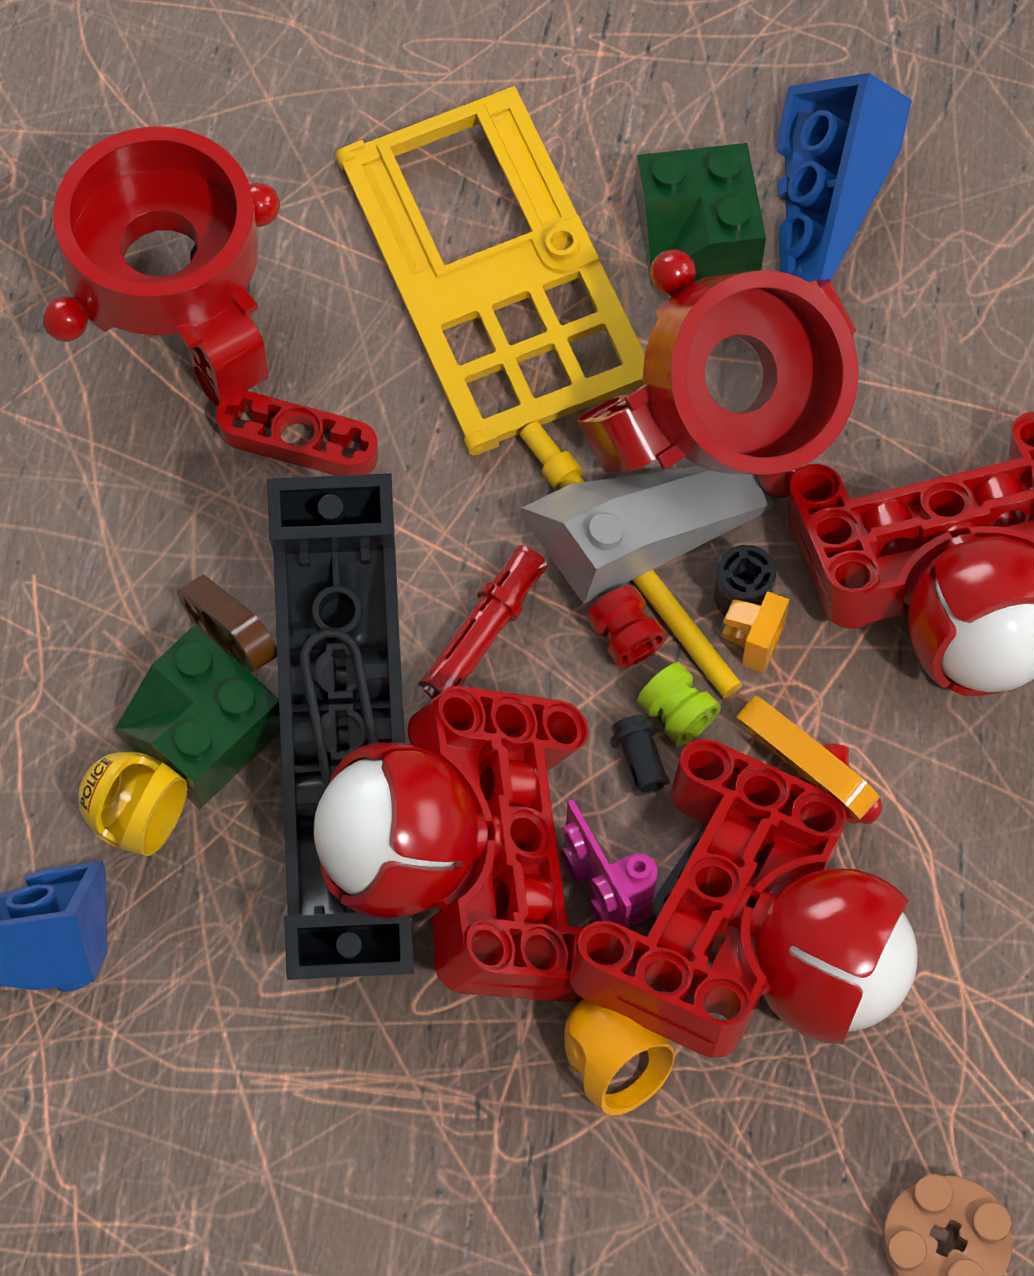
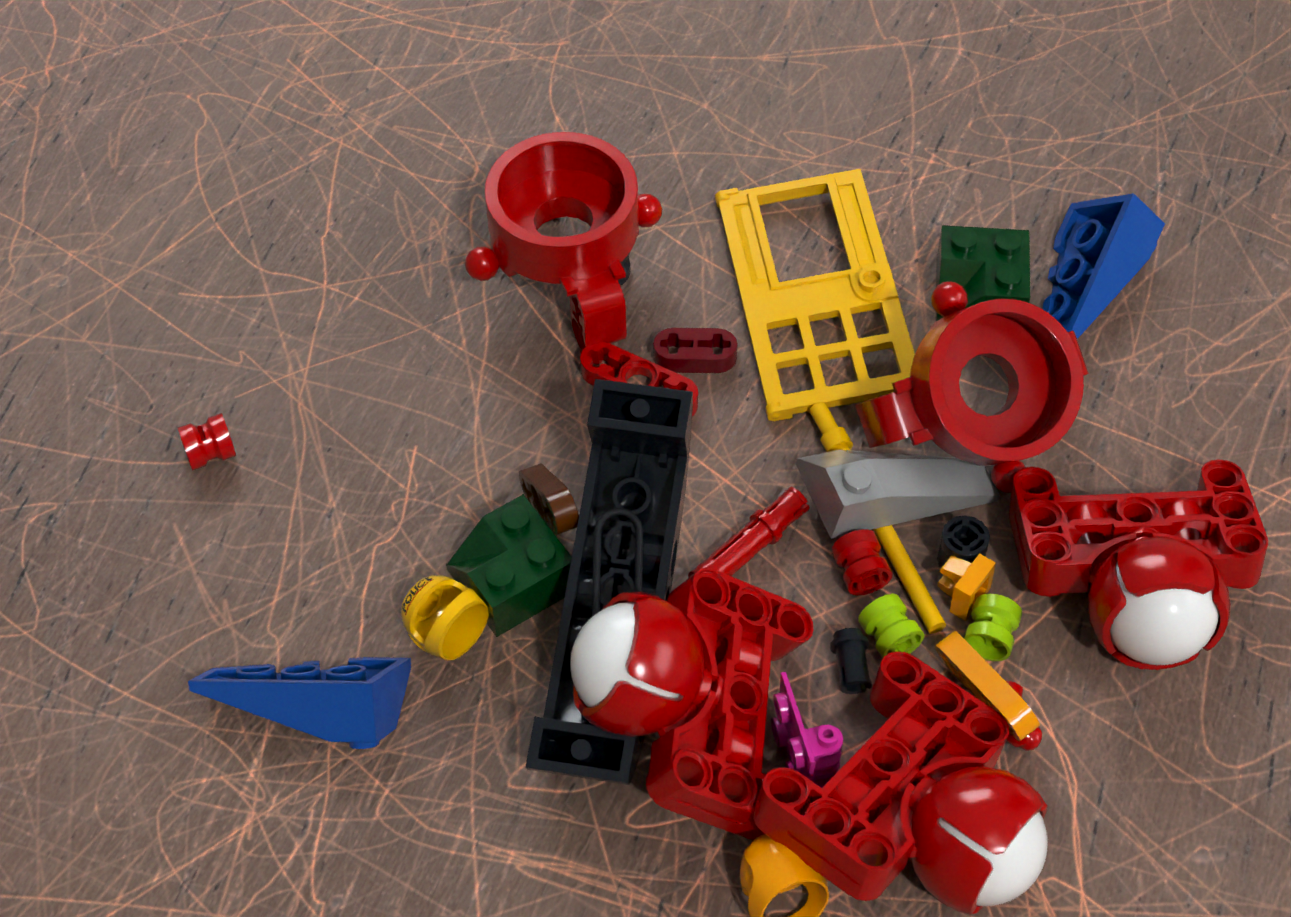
camera: 15 degrees right, 10 degrees down
(358, 378) = (695, 350): none -> dark red beam
(799, 679) = (993, 625): none -> lime wheel

